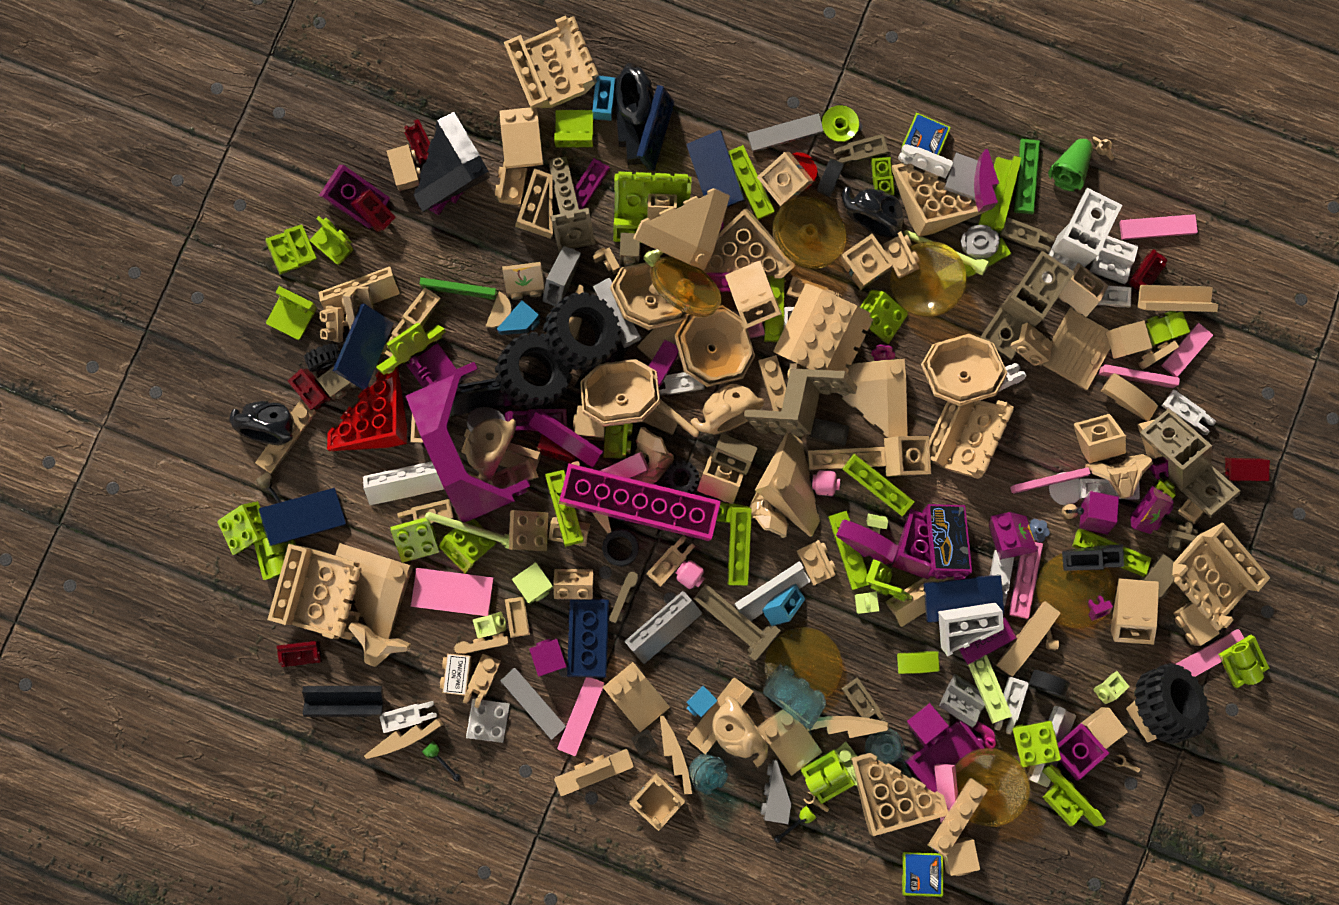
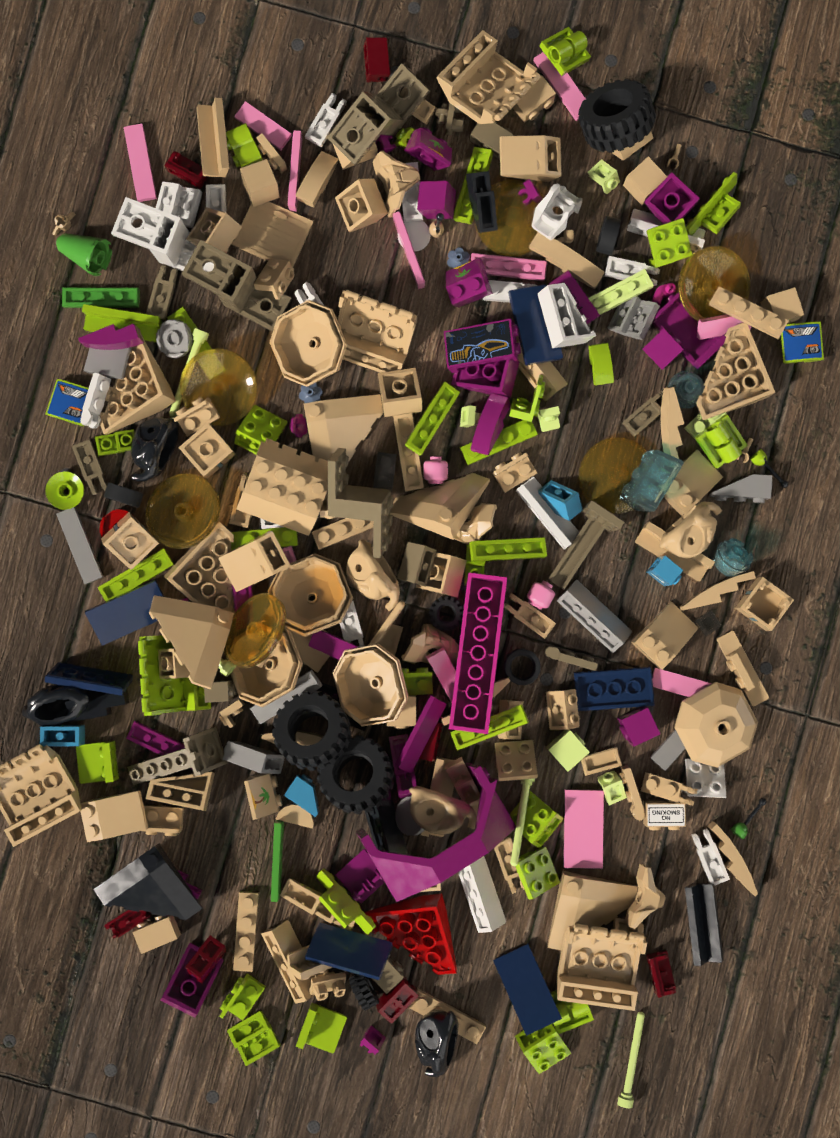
camera: 90 degrees left, 5 degrees up
(180, 603) = (625, 1099): none -> yellowish green piece
(265, 482) = (495, 1030): dark tan hinge -> none
(273, 361) = (372, 1040): none -> magenta tile
(394, 252) = (246, 931): none -> tan plate
(555, 726) = (701, 717): none -> tan rock
(912, 373) = (313, 397): none -> sand blue plant
(1071, 619) = (544, 218): none -> white piece

